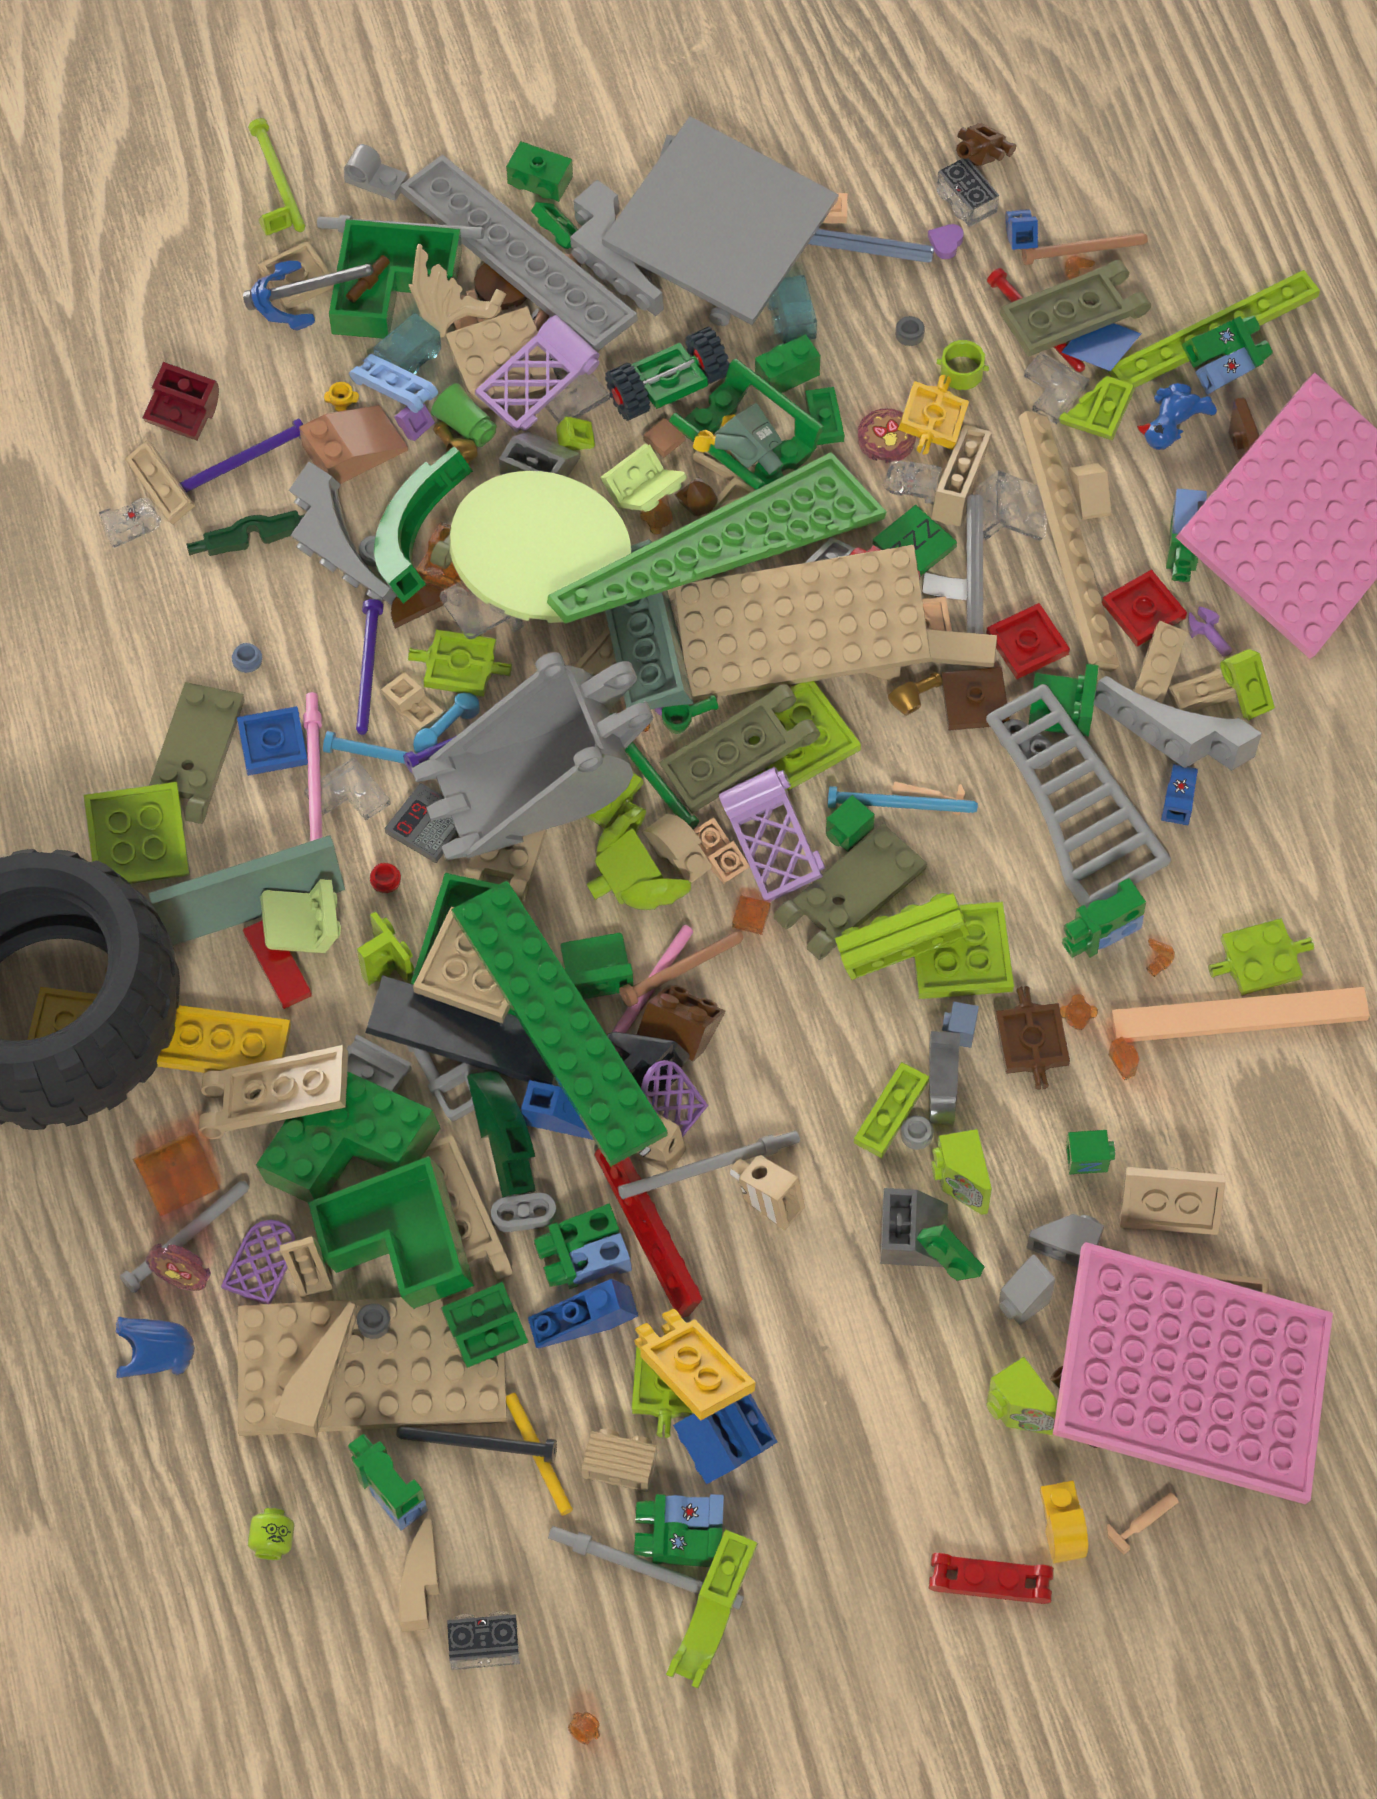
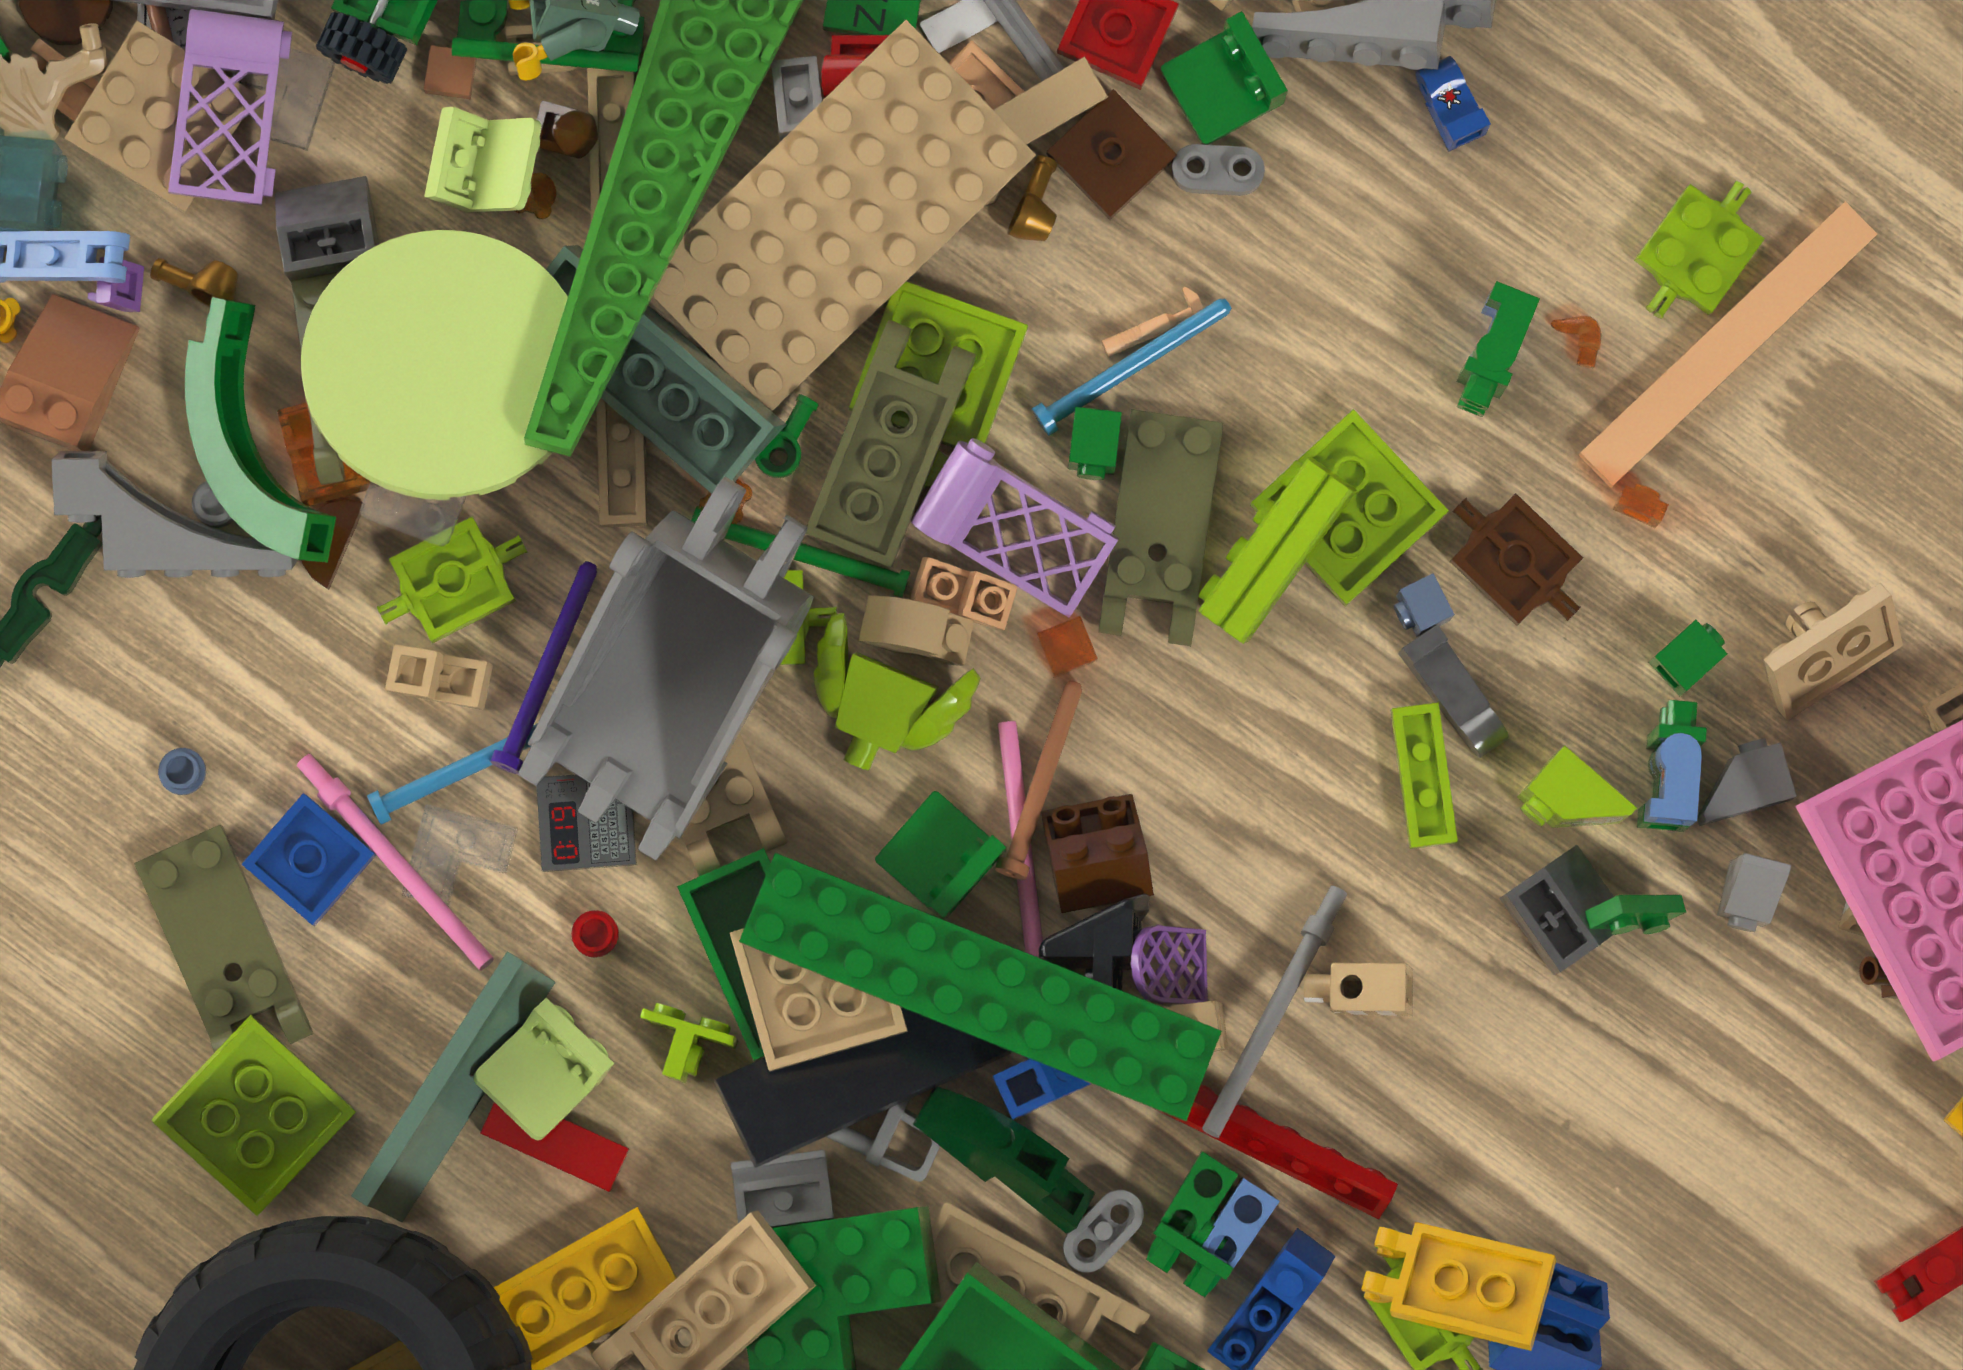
camera: 40 degrees left, 20 degrees up
(372, 609) = (284, 589): dark purple bar -> none
(463, 415) = (180, 233): bright green plant -> none
(465, 706) = (505, 631): dark azure bar -> none
(575, 434) = (335, 150): lime slope -> none
(917, 1132) = (1471, 779): light grey tile -> none
(1022, 1399) = (1844, 1027): lime slope -> none
(1042, 1187) = (1675, 769): none -> medium blue hips
(1053, 819) = (1329, 250): light grey bar -> none
(1075, 1020) = (1552, 494): clear orange plate -> none

